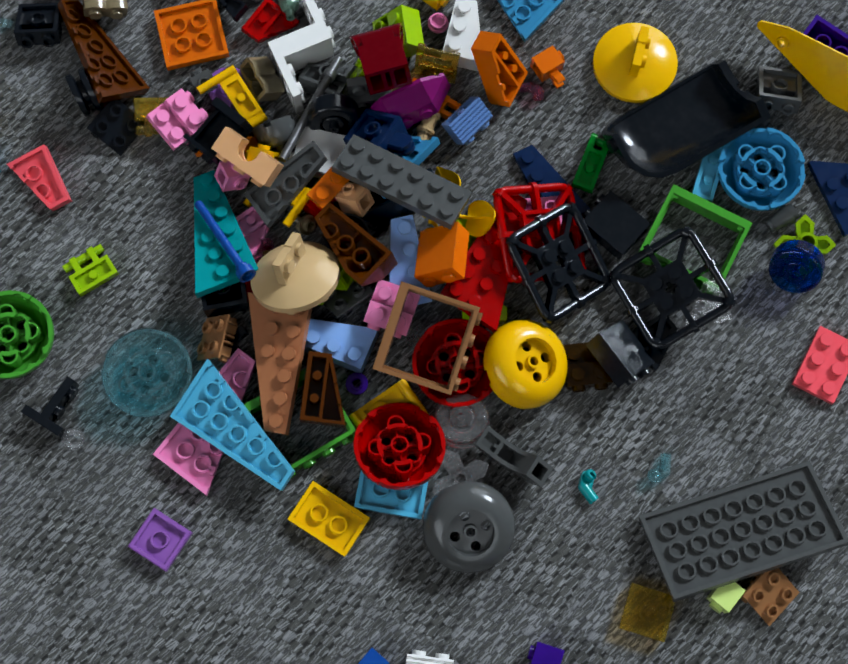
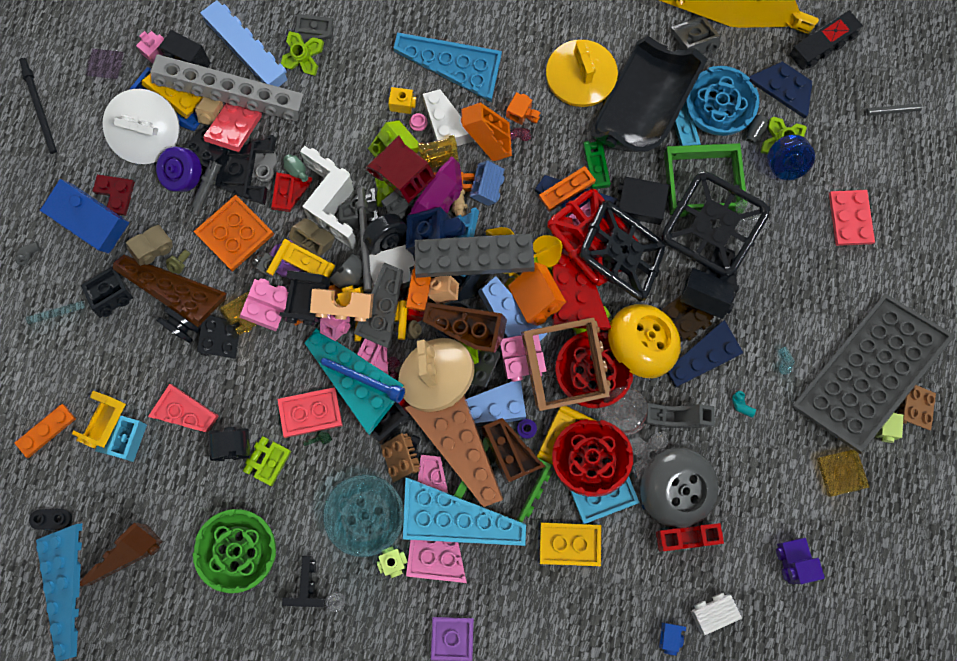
camera: 30 degrees left, 0 degrees up
(63, 232) = (229, 444): none -> black brick
(118, 33) = (175, 264): none -> olive plate
(153, 438) = (400, 561): none -> yellowish green brick
(156, 277) = (324, 437): none -> clear green hand
(158, 247) = (310, 412): none -> coral plate
(448, 581) = (689, 537): none -> red arch
(543, 170) = (567, 188): none -> orange plate
(582, 416) = (707, 354): none -> dark blue wing

